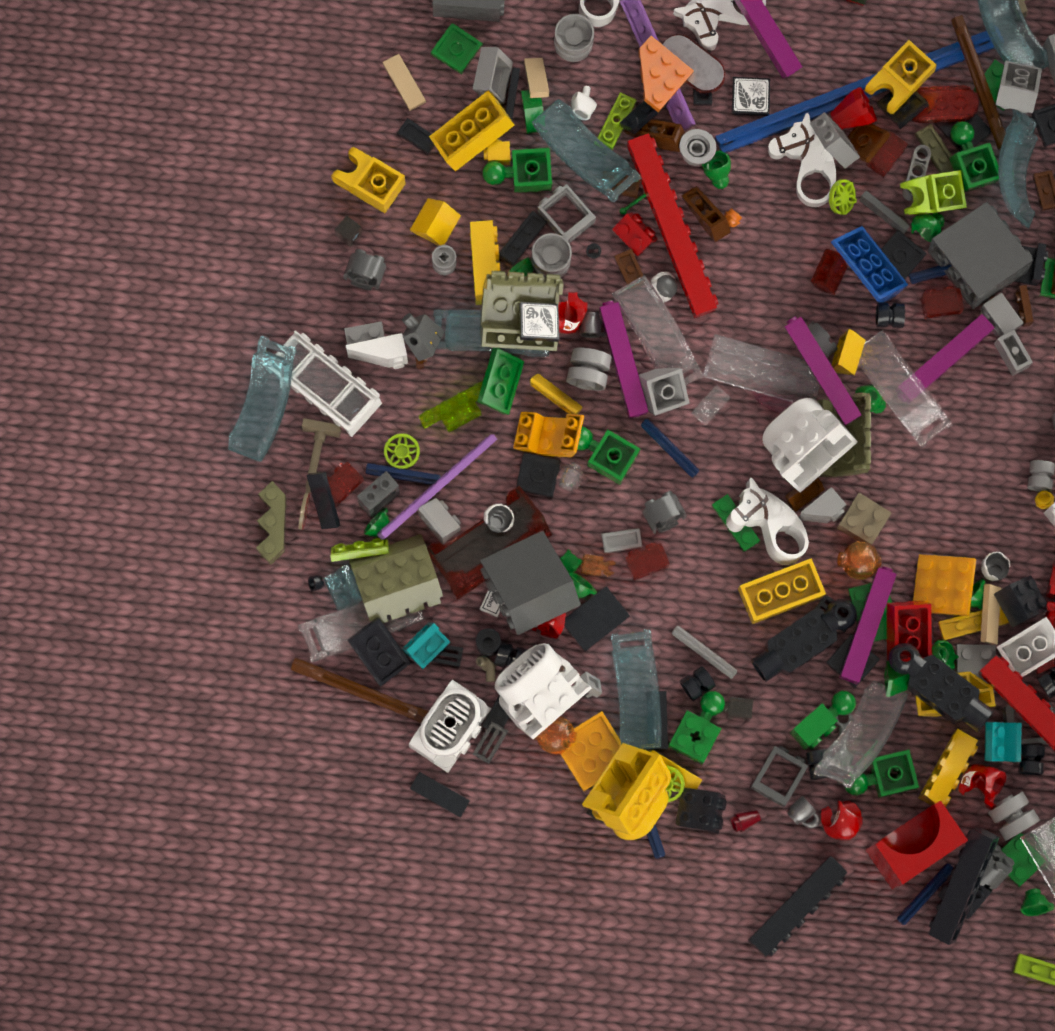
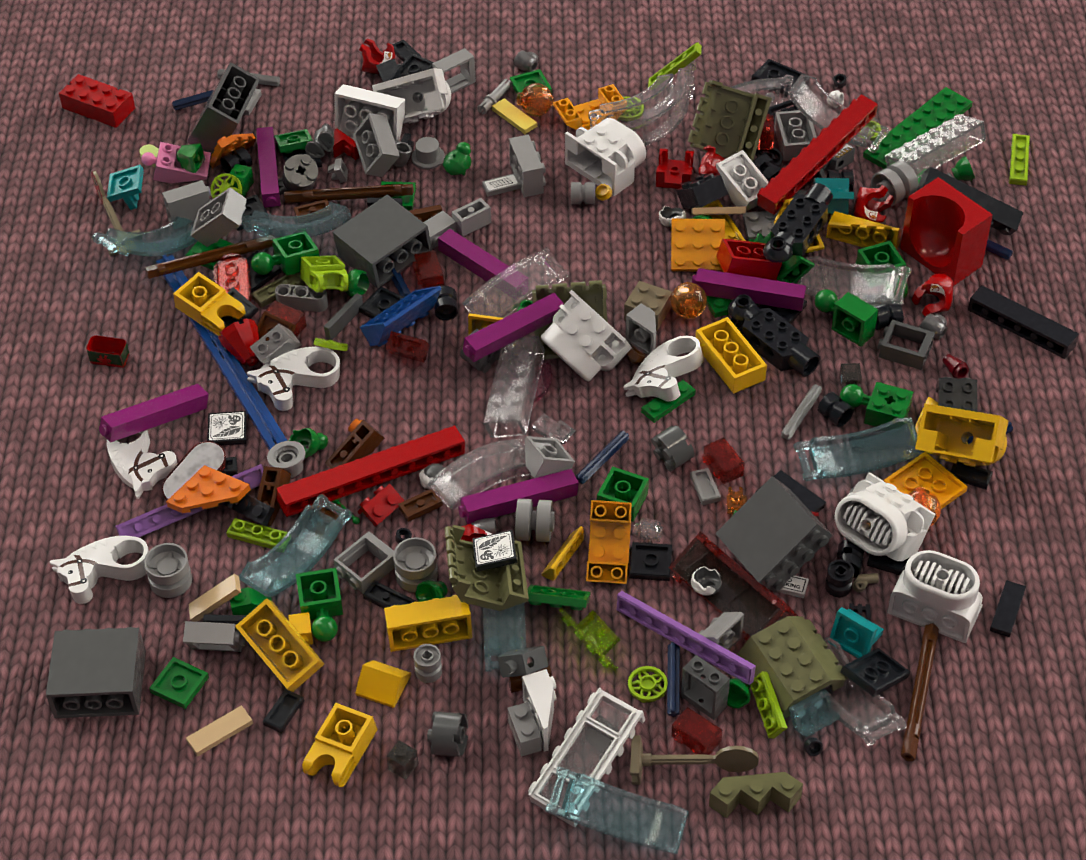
camera: 90 degrees left, 30 degrees down
(323, 500) = (711, 742): black tile -> none
(582, 104) = (240, 559): white piece -> none

